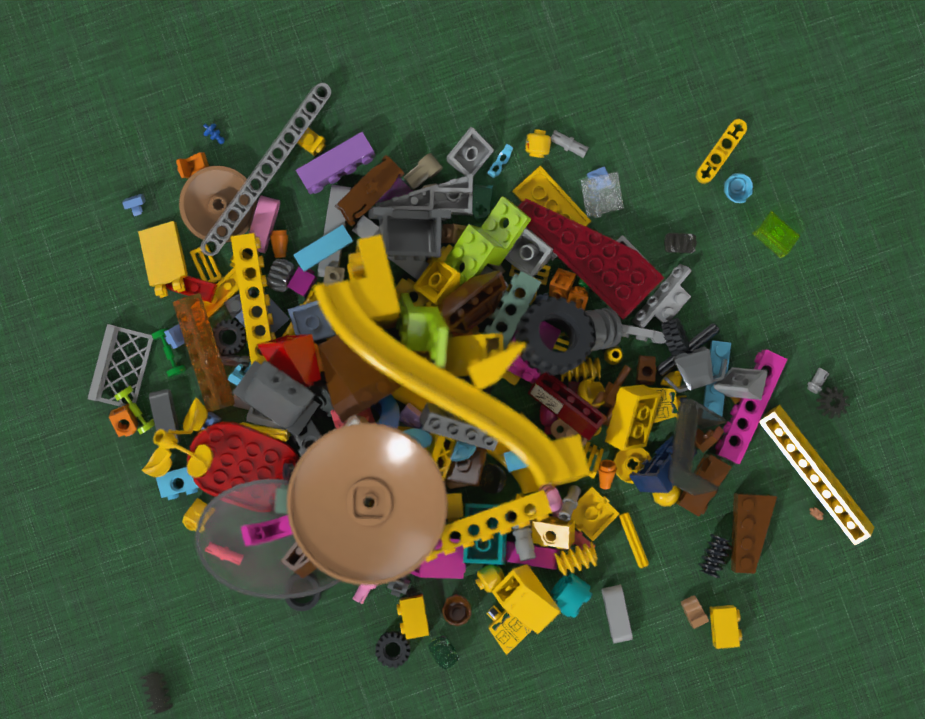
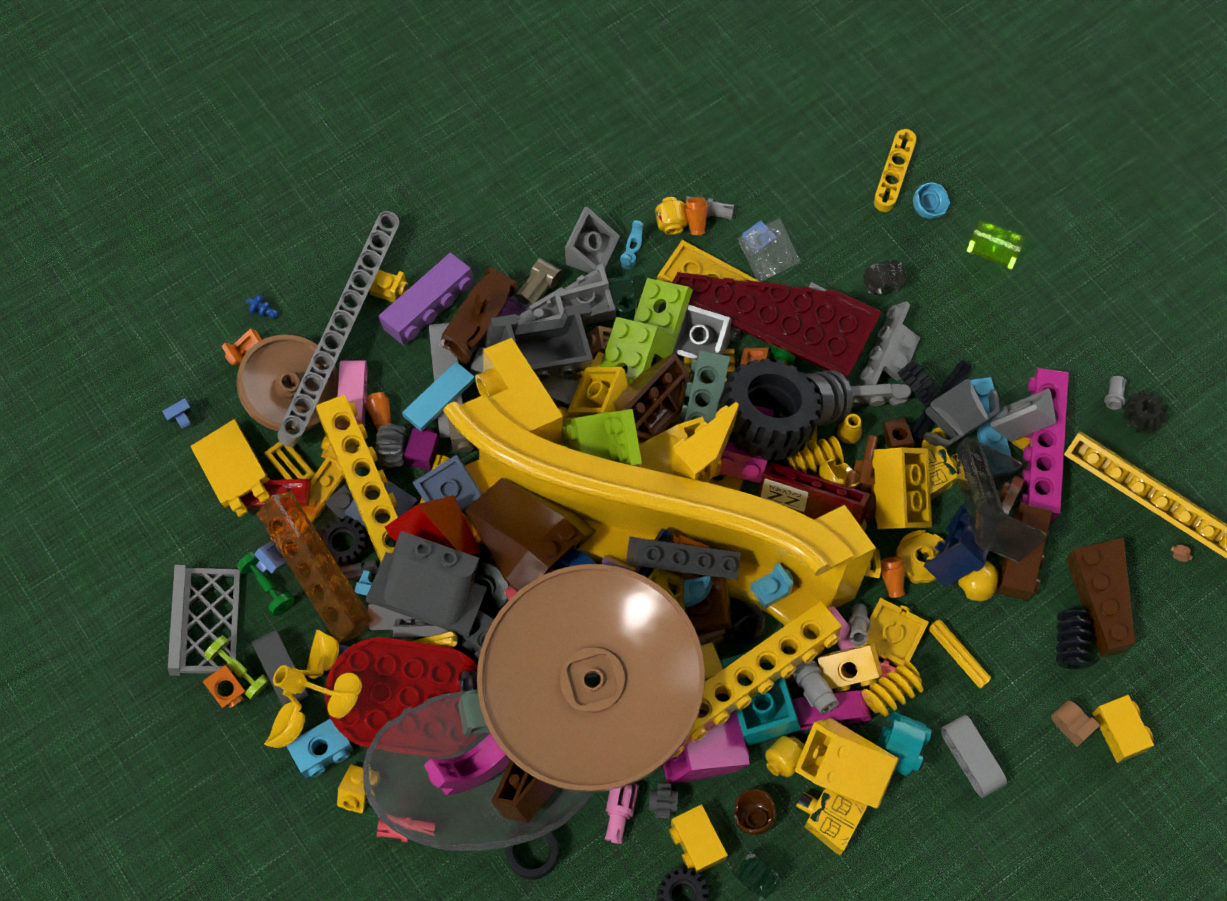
camera: 15 degrees left, 20 degrees down
(557, 147) = (696, 213): none -> orange cone

